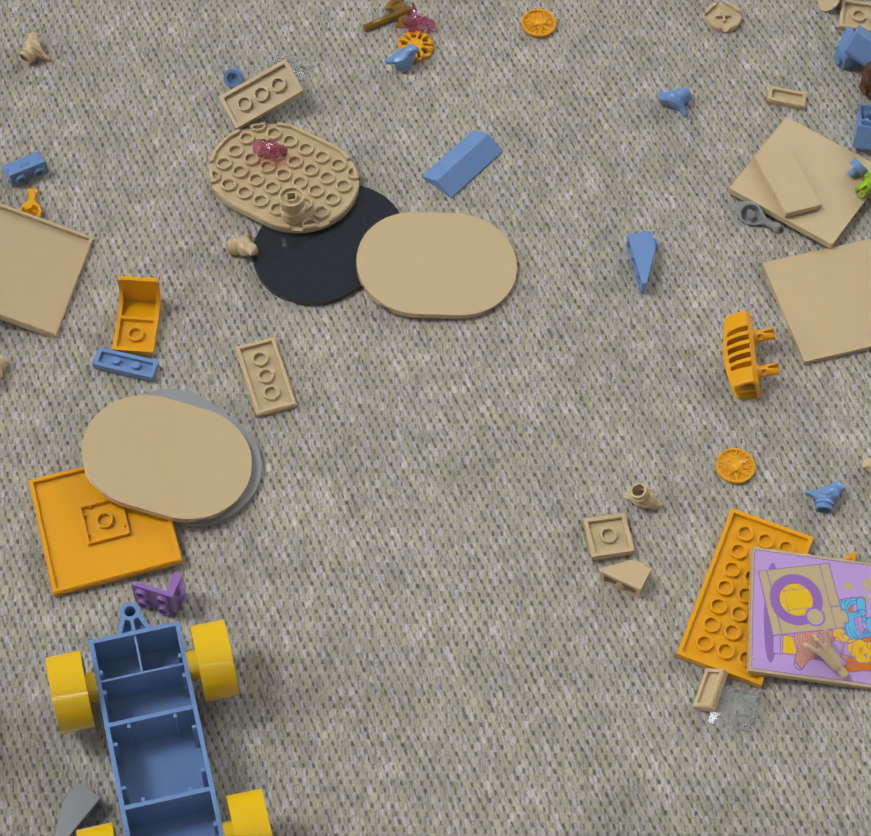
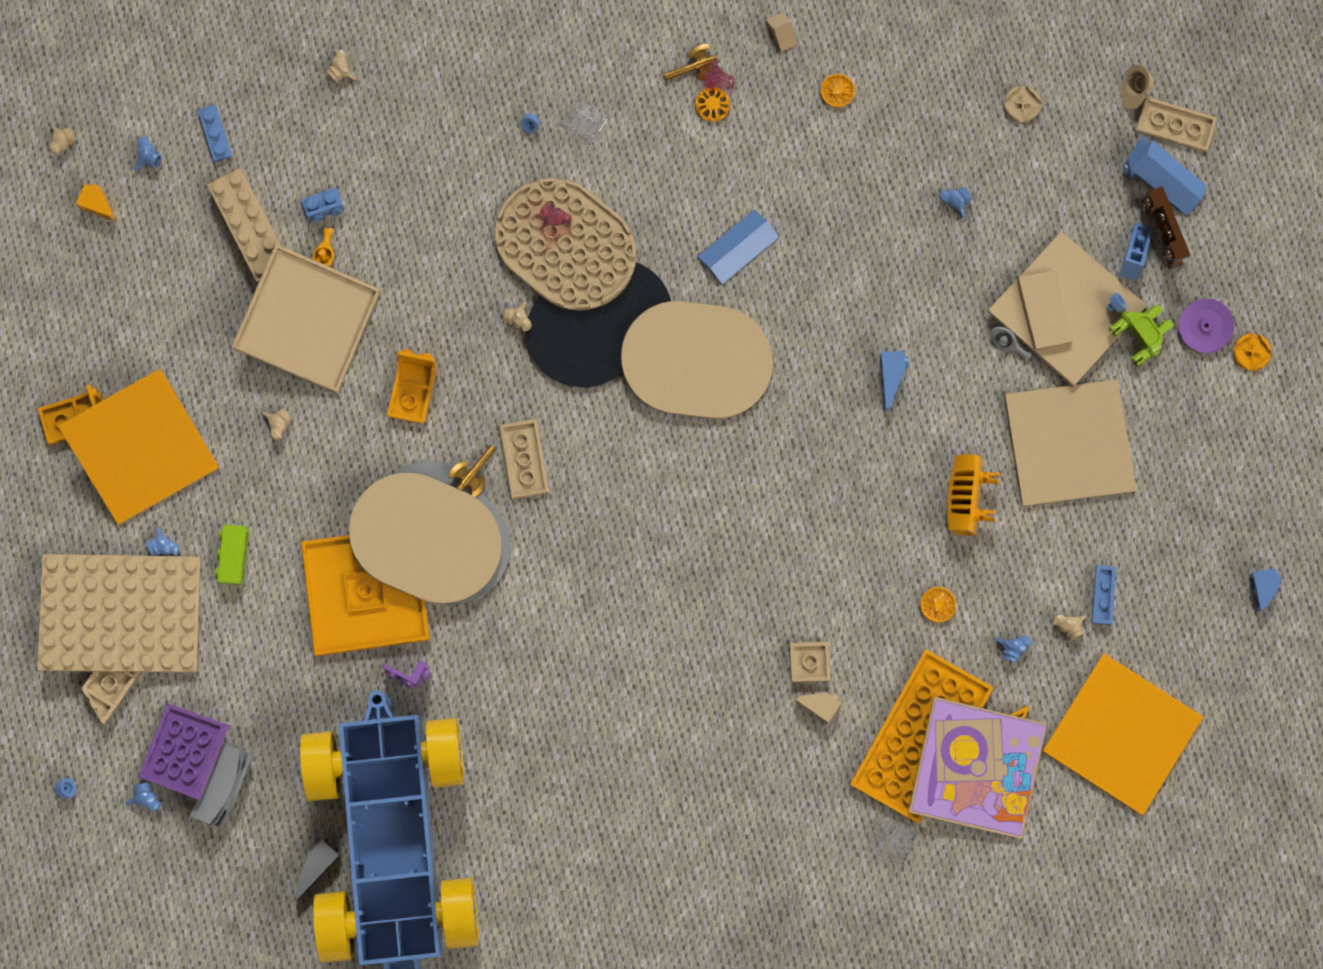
camera: 10 degrees right, 20 degrees up
(126, 364) = (398, 431): medium blue plate -> none
(208, 397) = (468, 477): none -> pearl gold piece
(261, 94) = (554, 151): tan plate -> none
(292, 205) = (568, 286): tan wheel -> none
(403, 58) = (696, 121): medium blue animal -> none
(643, 497) = (848, 628): tan animal -> none
(710, 689) = (873, 821): tan tile -> none
(786, 98) = (1066, 208): tan tile -> none
(828, 654) = (980, 805): tan piece -> none

